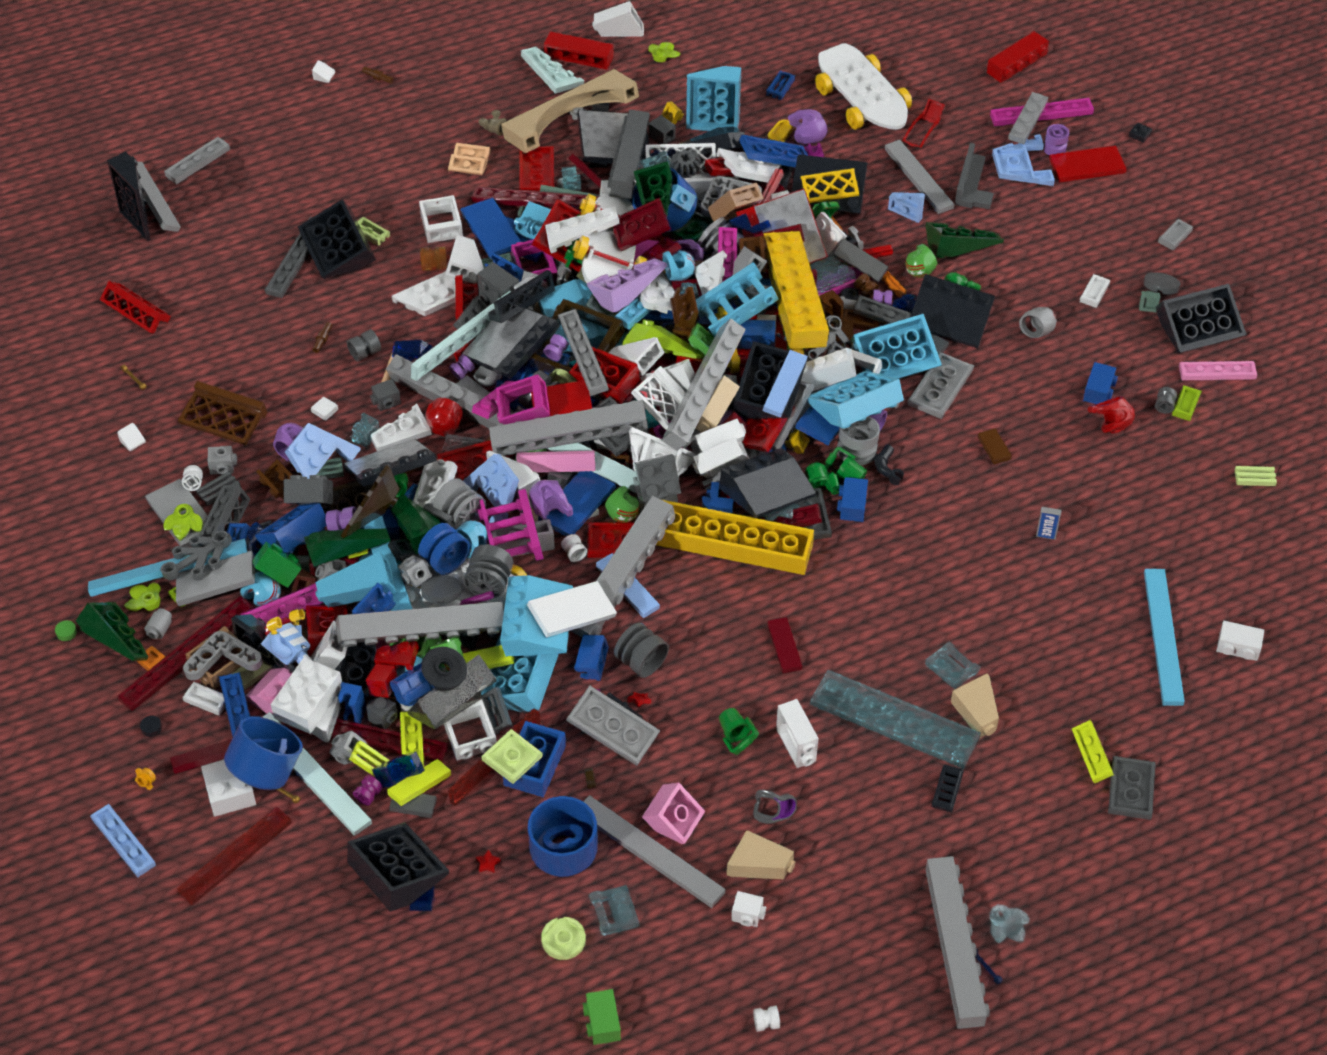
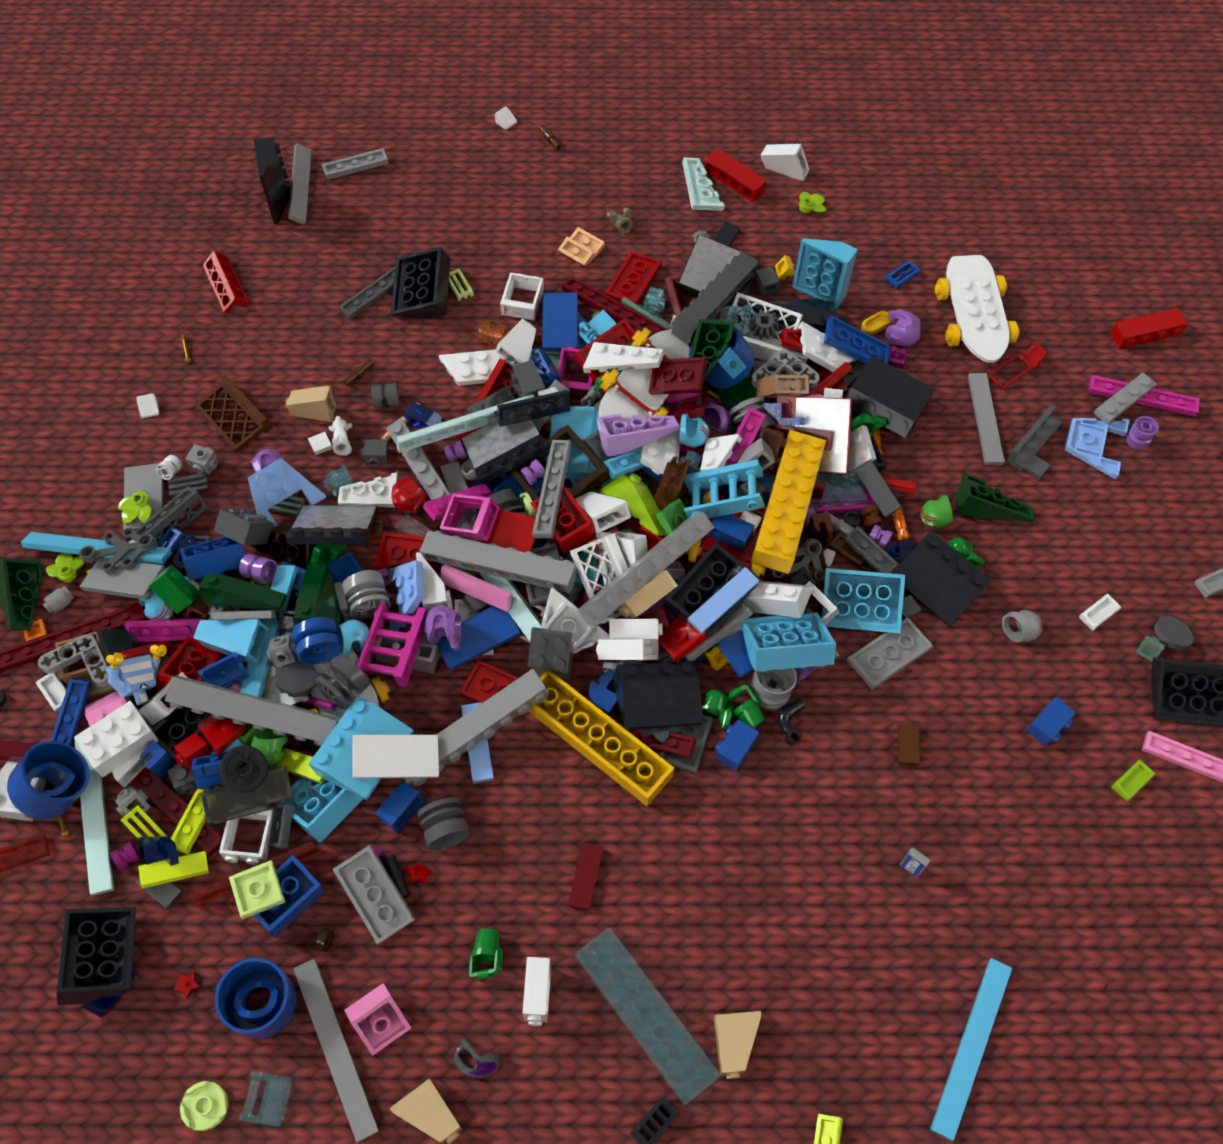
camera: 25 degrees right, 10 degrees up
(274, 478) = (238, 495): reddish brown bracket -> none
(297, 376) = (312, 403): none -> tan slope
(340, 564) = (243, 615): none -> light grey tile
(347, 397) = (340, 445): none -> white animal
(375, 503) = (294, 561): dark brown wedge -> none
(432, 479) = (362, 559): white wing -> none
(526, 128) = (645, 235): tan arch -> none
(573, 546) = (449, 681): white wheel -> none
(622, 506) = (513, 658): bright green helmet -> none
(837, 175) = (875, 408): yellow window -> none
(852, 231) = (887, 455): light grey tile -> none
(907, 204) = (956, 446): light blue wing -> none
(949, 669) = (729, 982): clear light blue plate -> none
(1087, 163) = (1163, 468): red tile -> none
(1117, 414) = (1051, 764): red helmet -> none
(1166, 400) = (1111, 769): dark grey wheel -> none
(1240, 640) = (1050, 1095): white brick -> none
(1252, 474) = (1163, 889): yellowish green tile -> none

